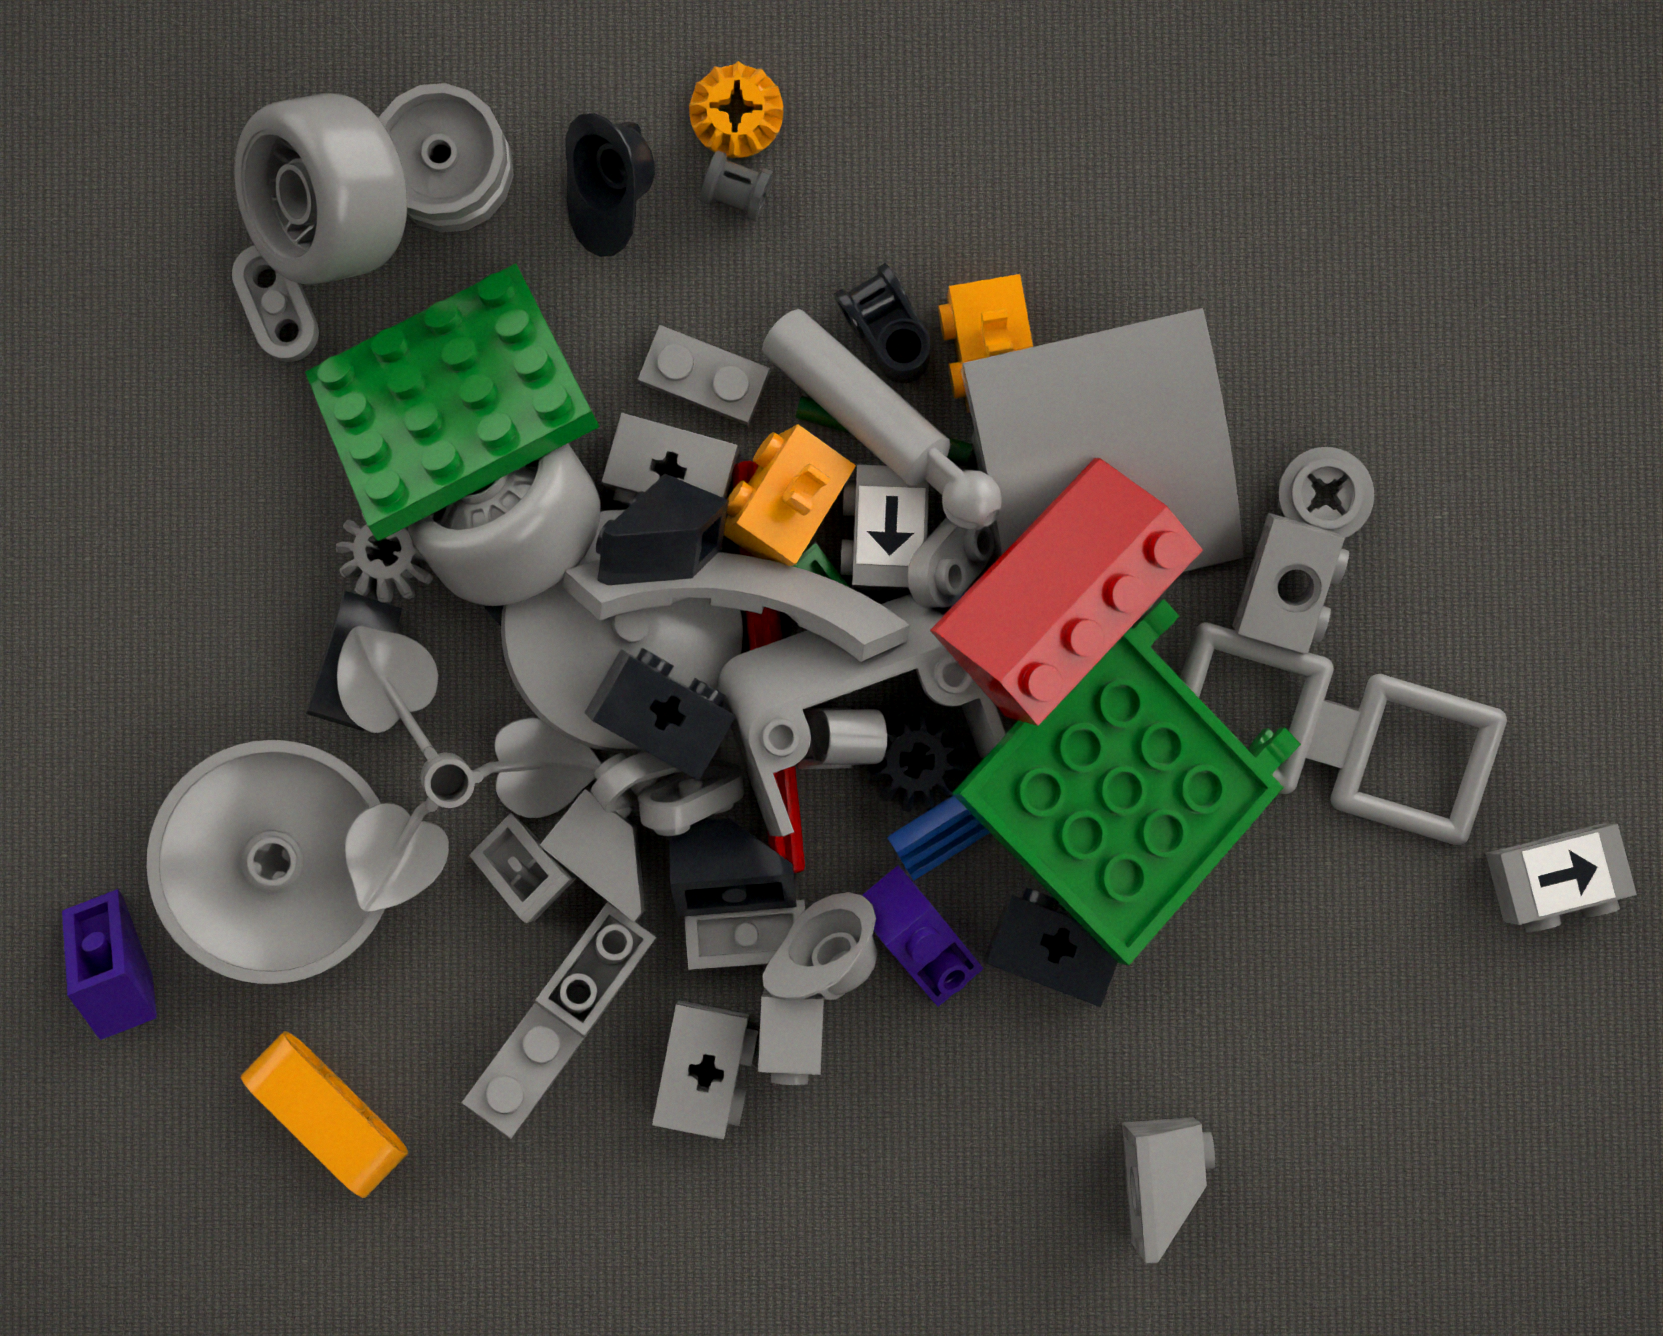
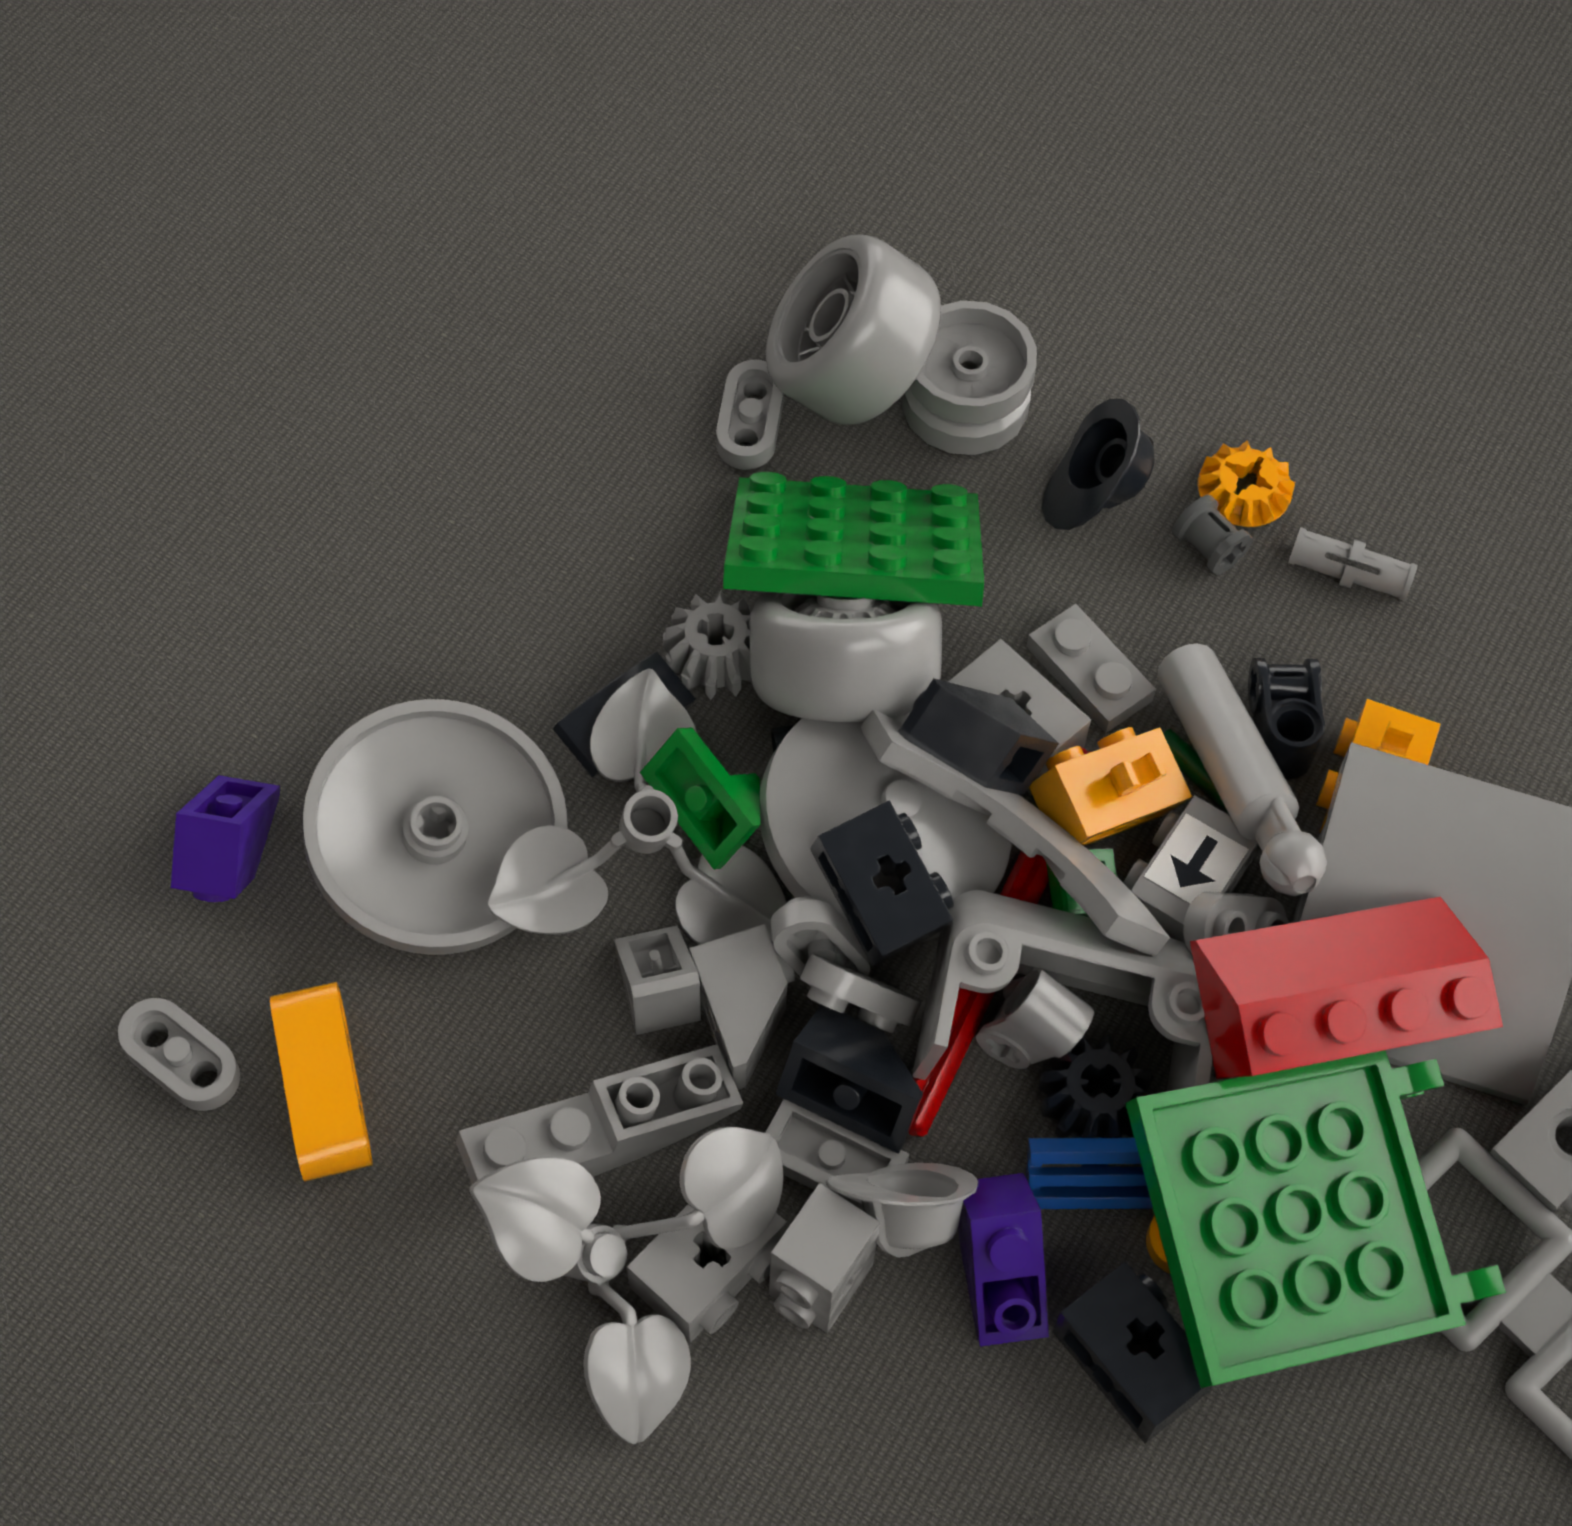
camera: 30 degrees right, 25 degrees down
(204, 1160) = (182, 1056): none -> light grey plate
(481, 716) = (711, 805): none -> green slope
(578, 1161) = (543, 1230): none -> light grey plant
(867, 139) = (1394, 575): none -> light grey pin

